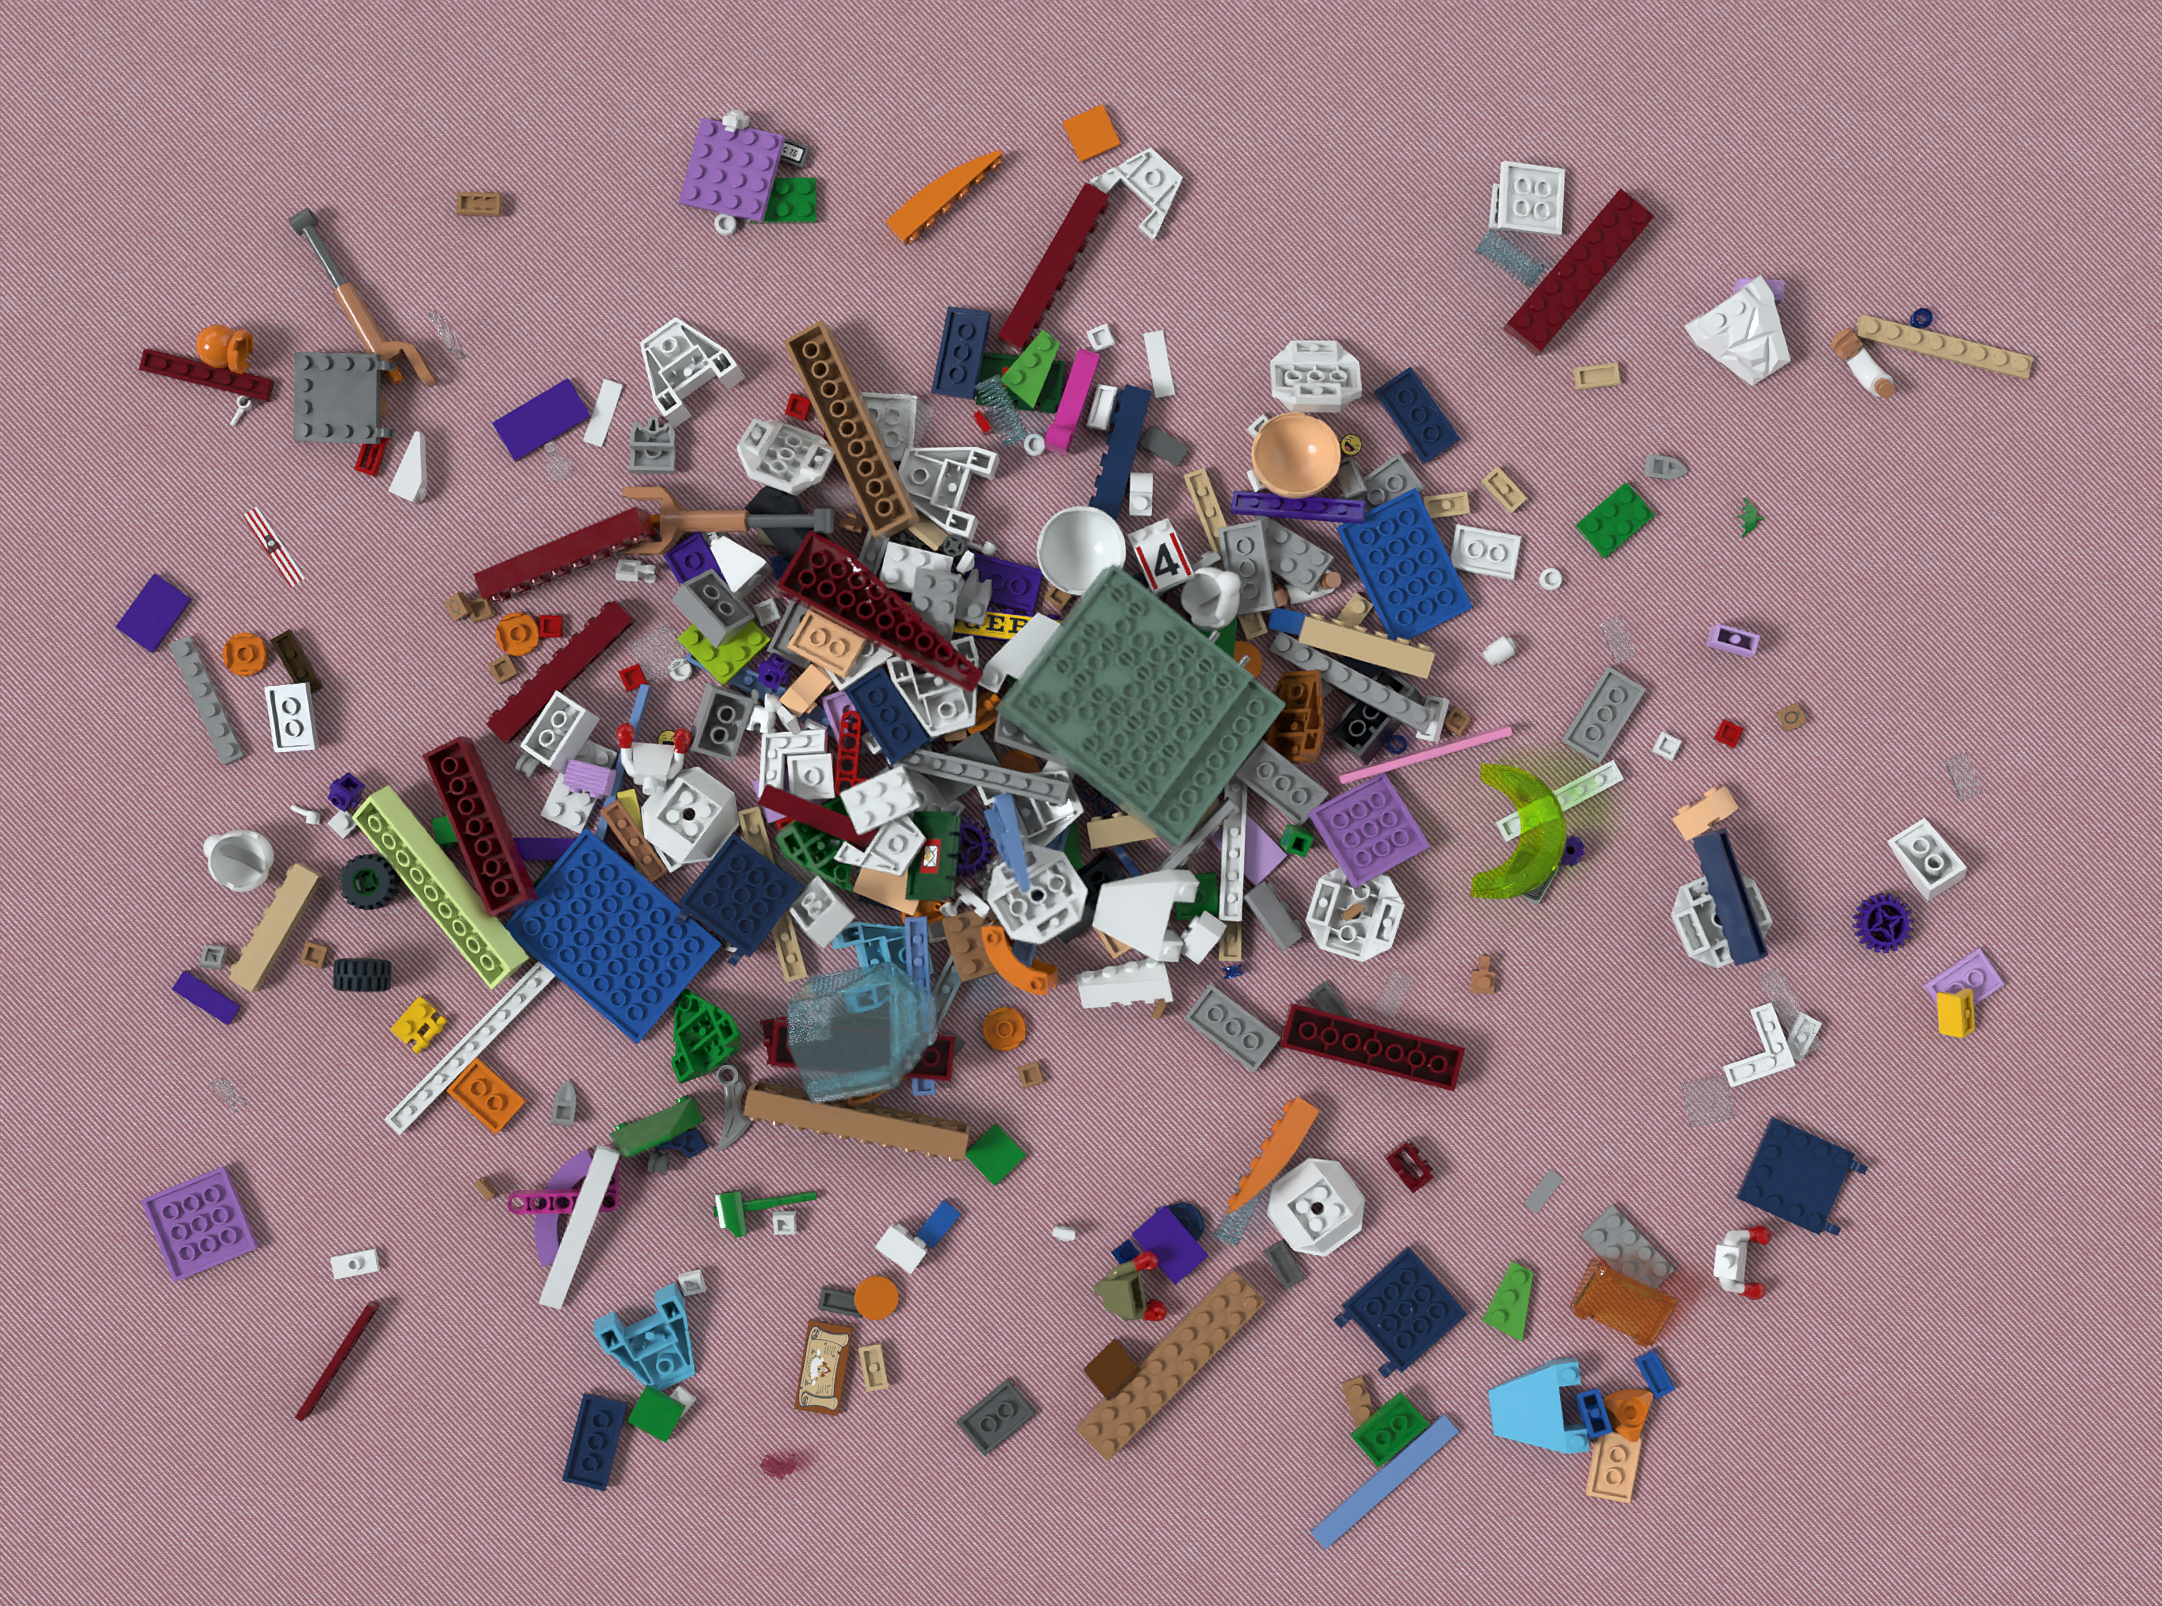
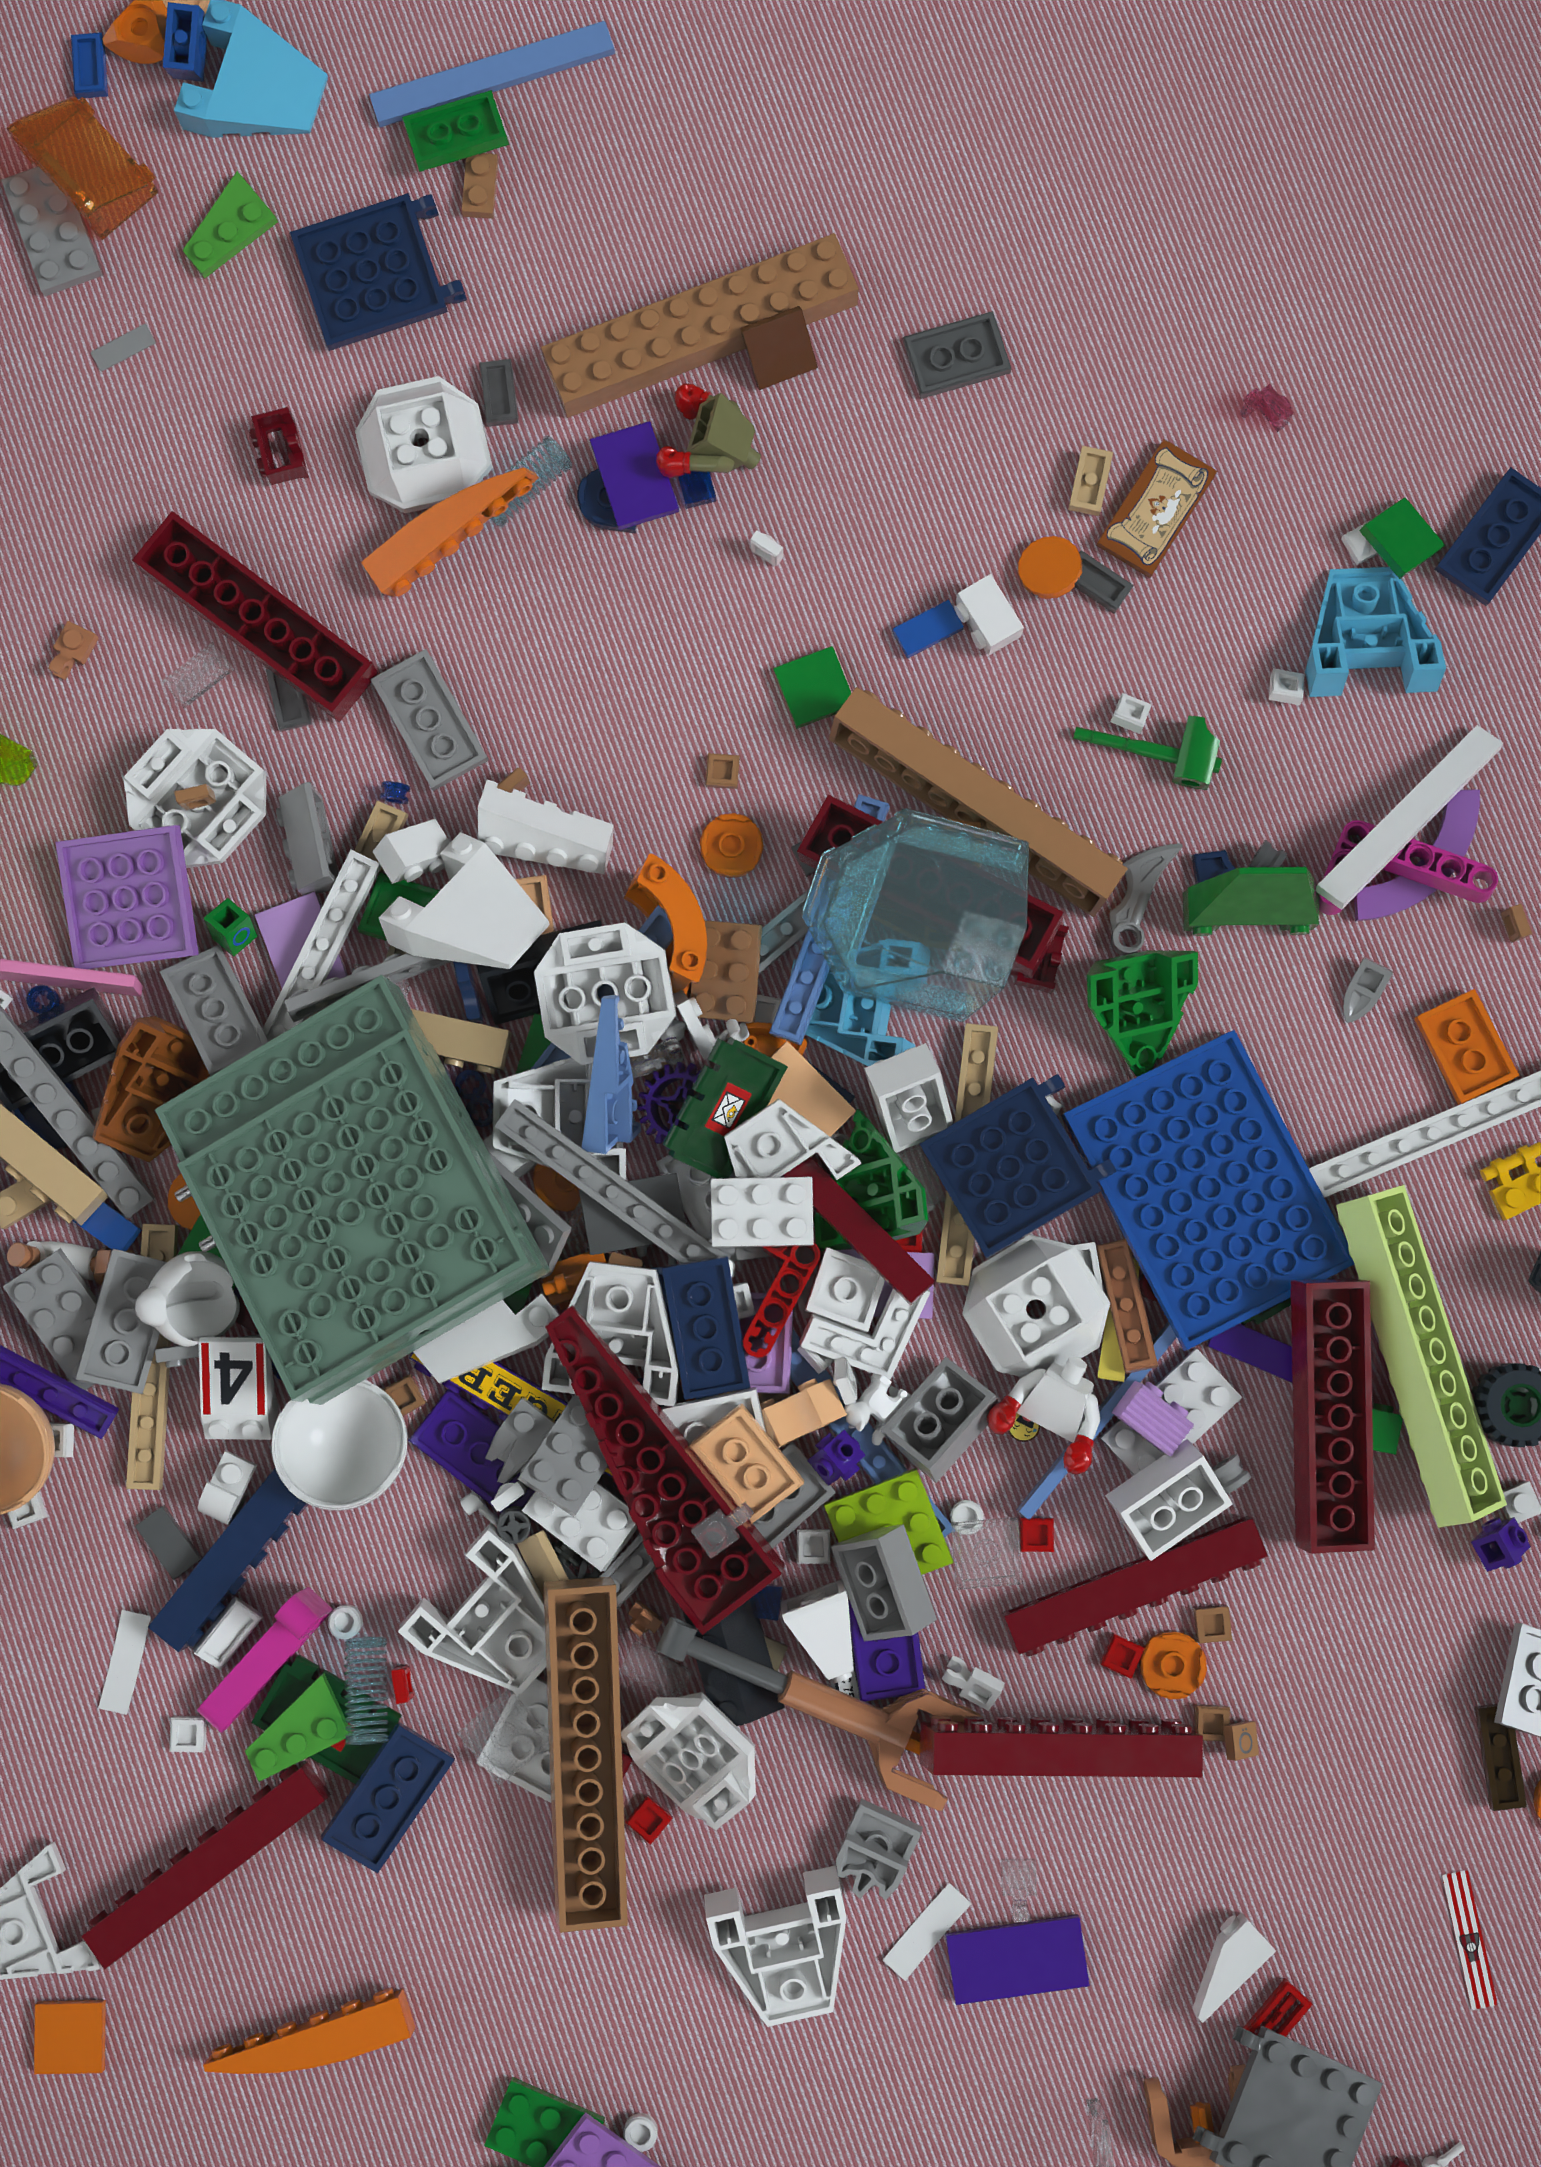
camera: 155 degrees left, 5 degrees down
(824, 595) = (719, 1531): none -> clear plate

